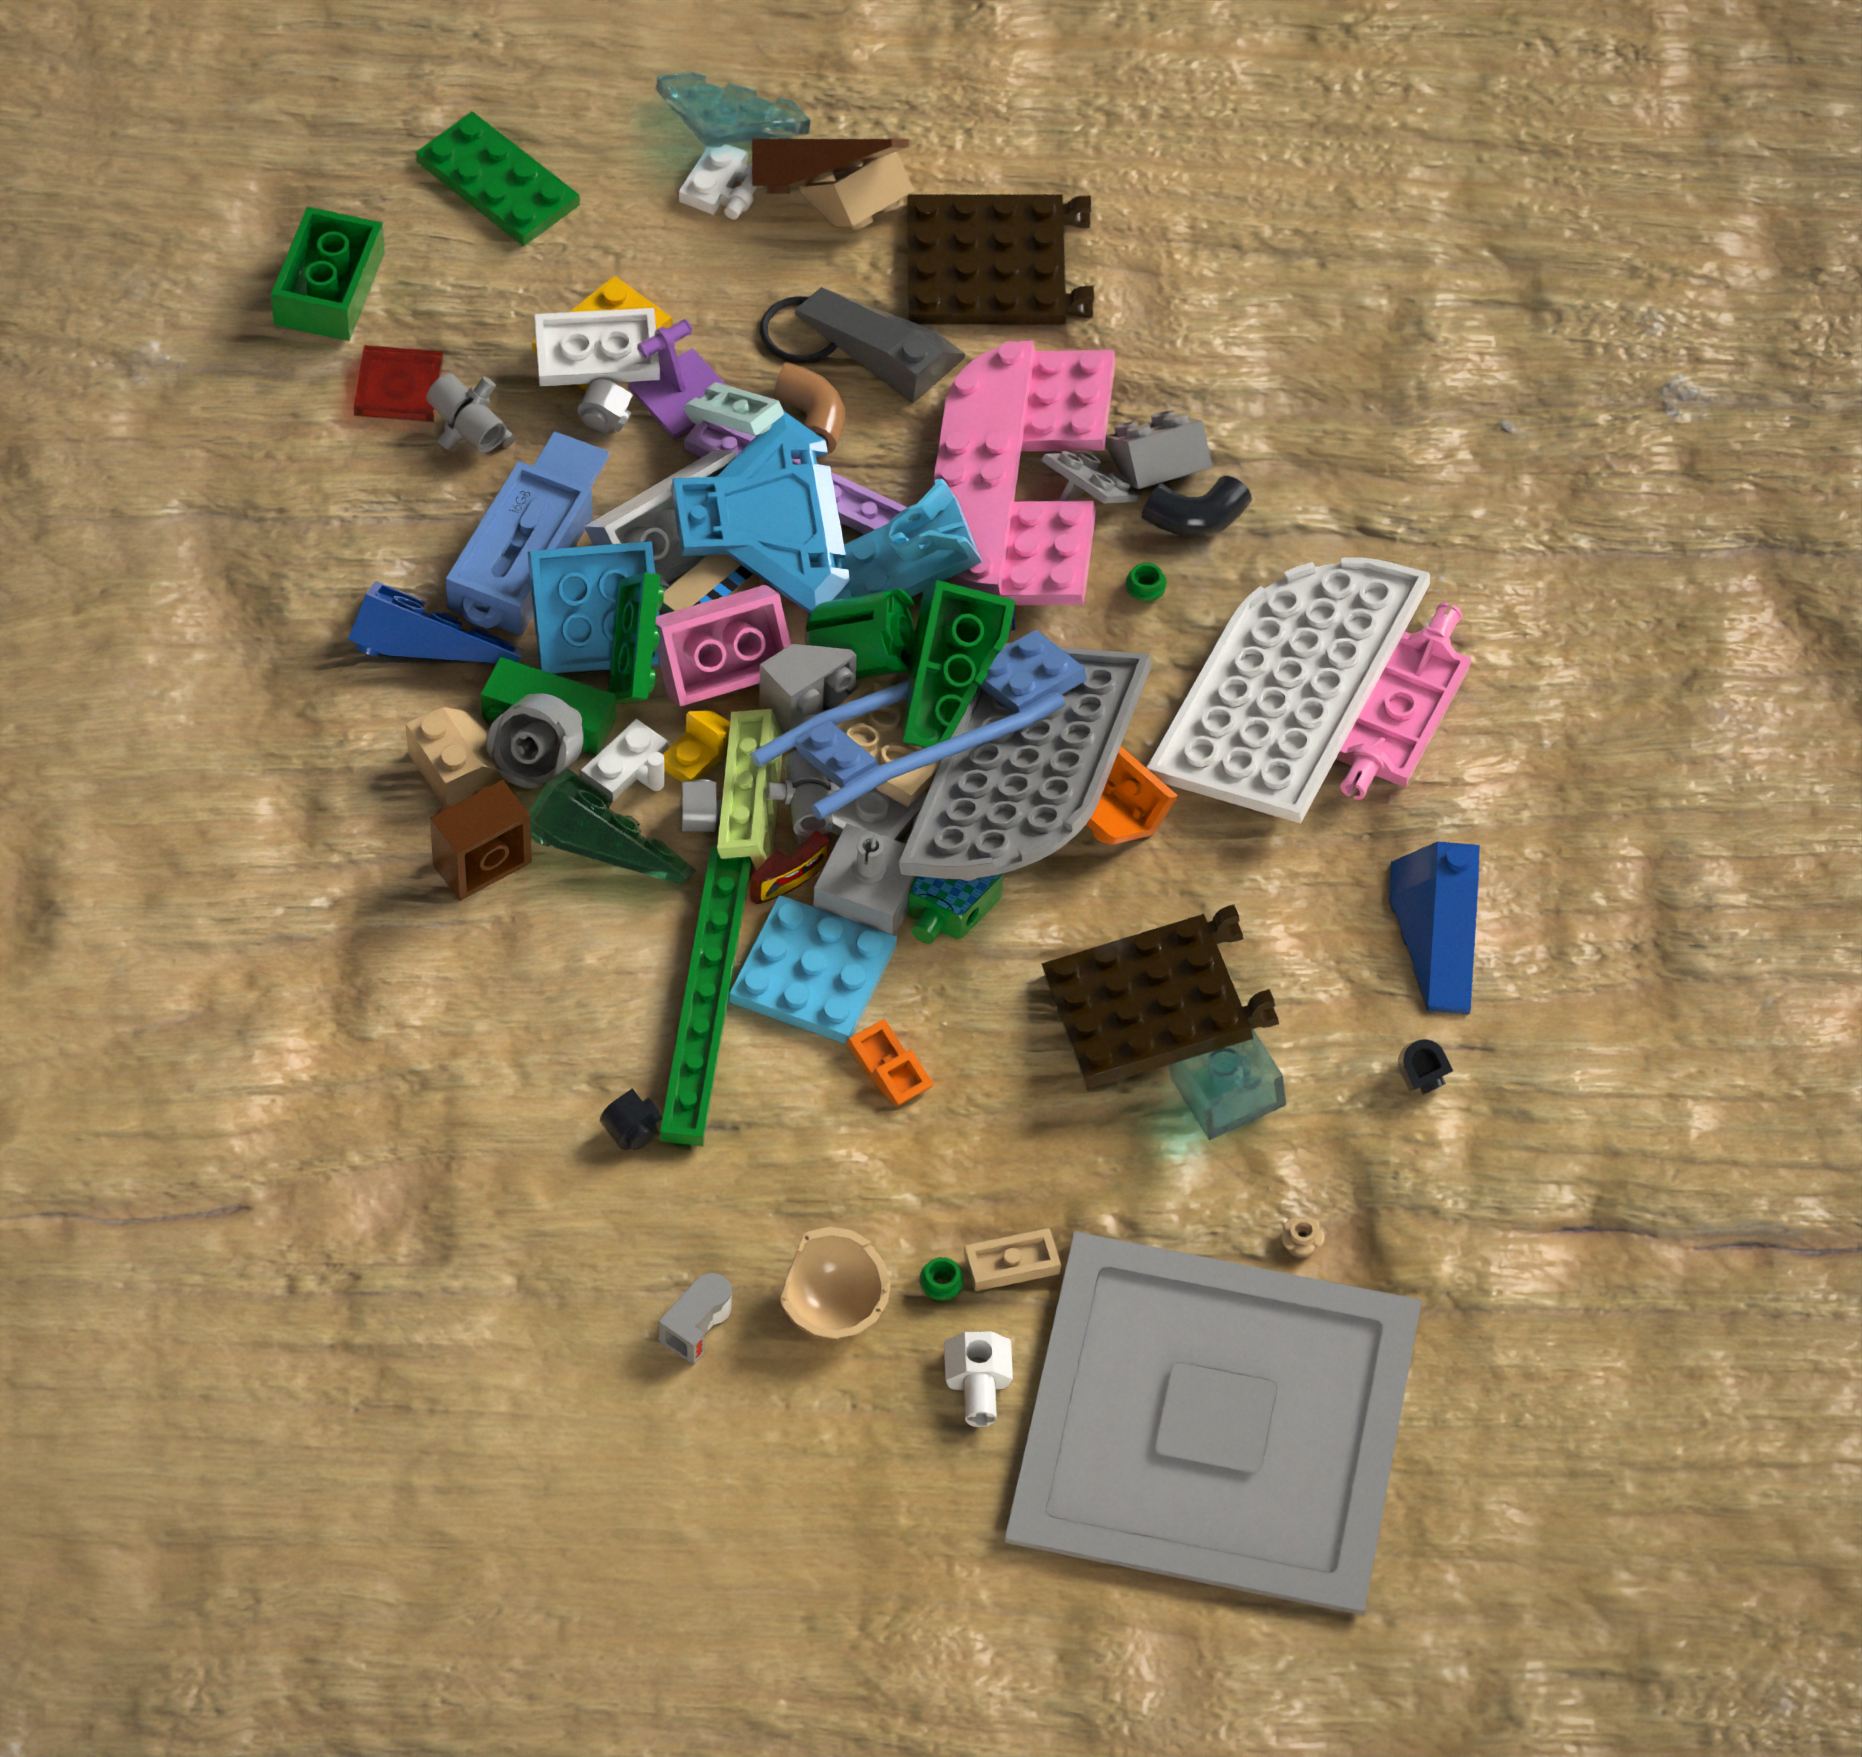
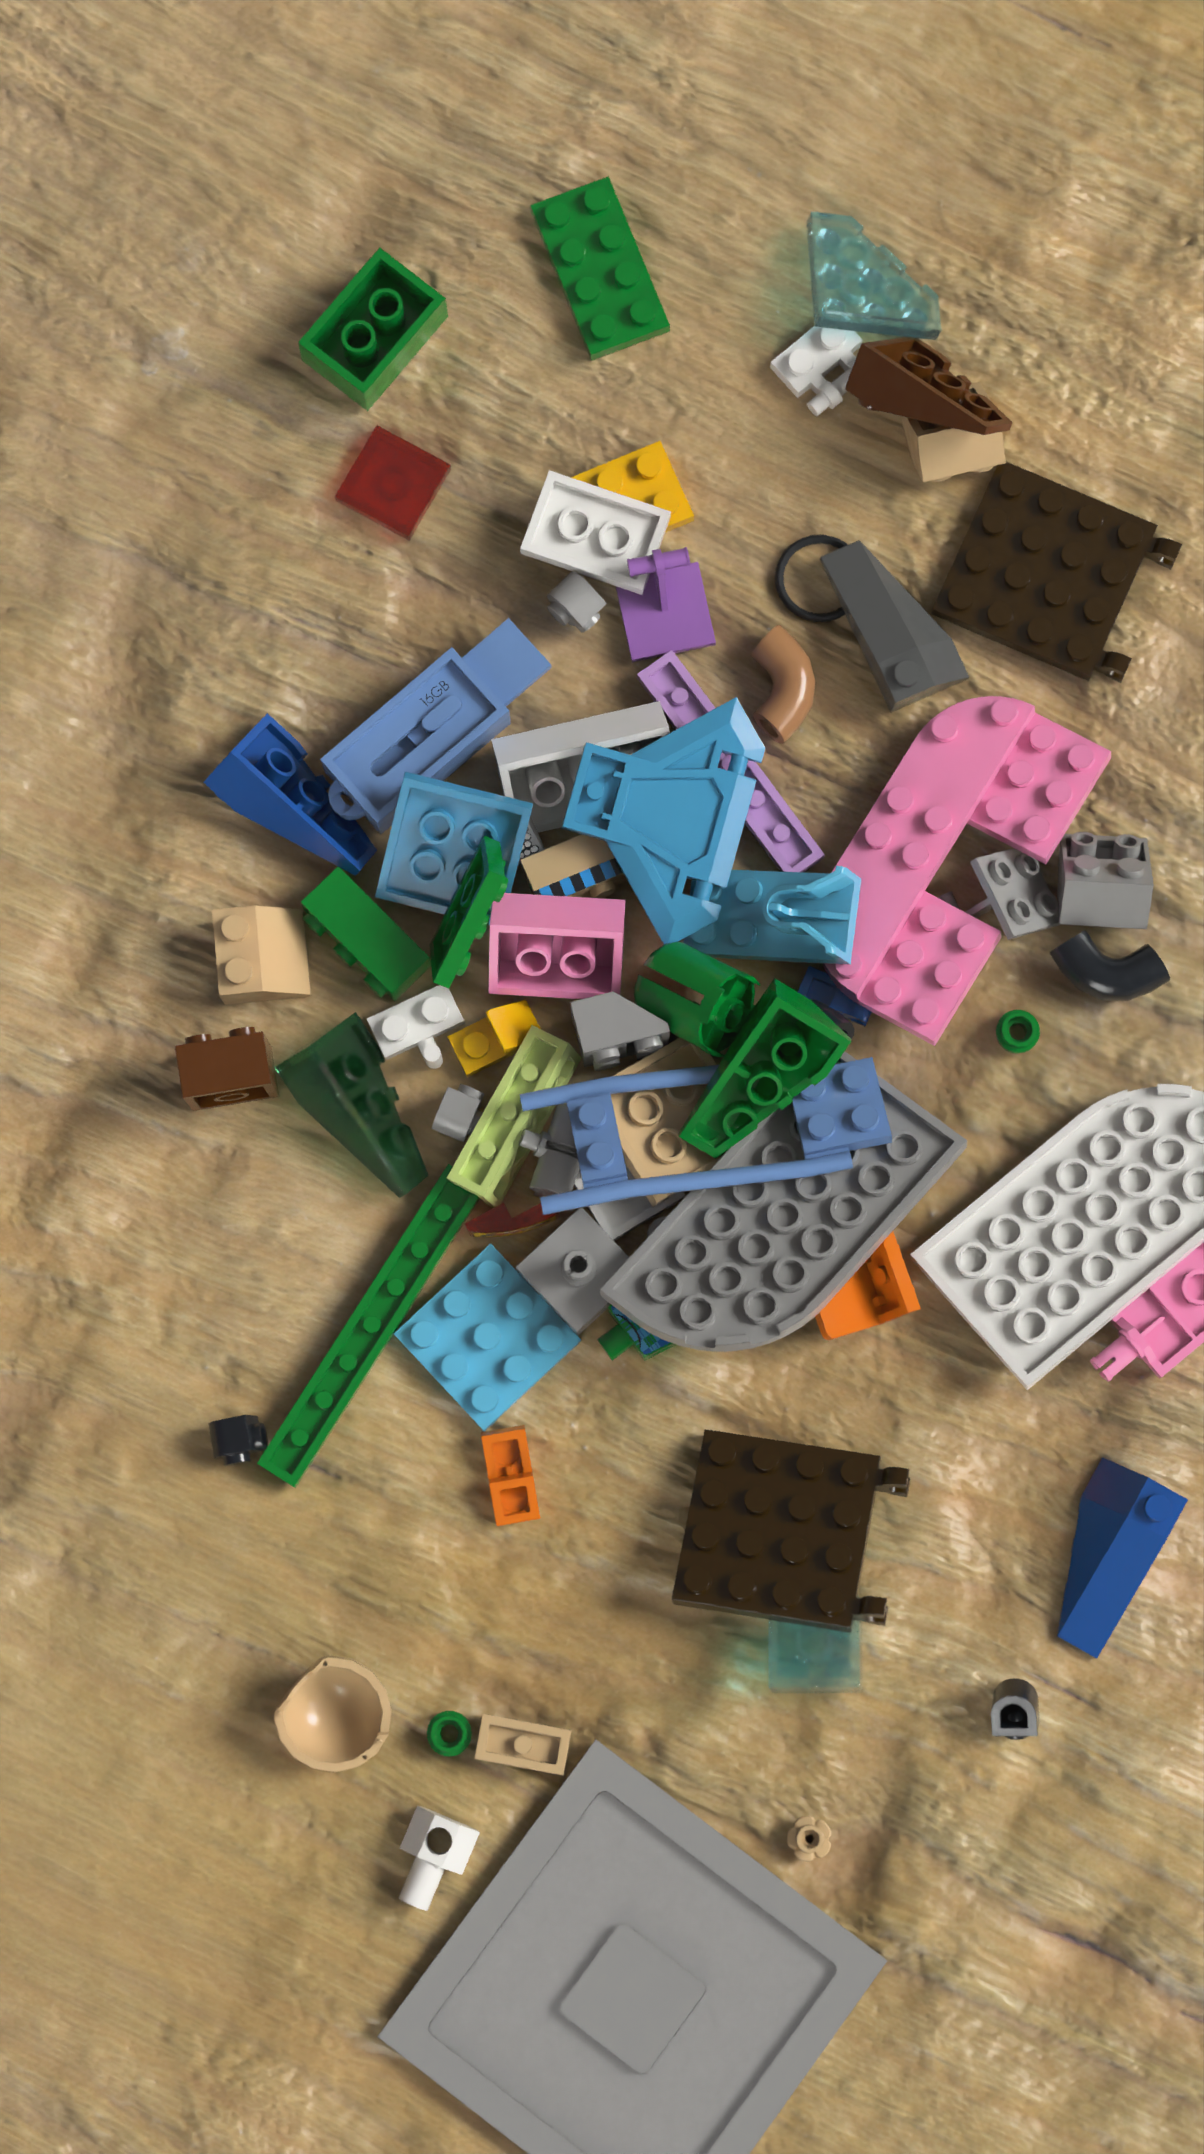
camera: 30 degrees right, 25 degrees up
(468, 414) = (438, 557): light grey pin -> none
(535, 740) = (327, 981): light grey brick -> none
(693, 1315) = (217, 1664): light grey leg -> none
(734, 409) = (690, 676): light aqua plate -> none

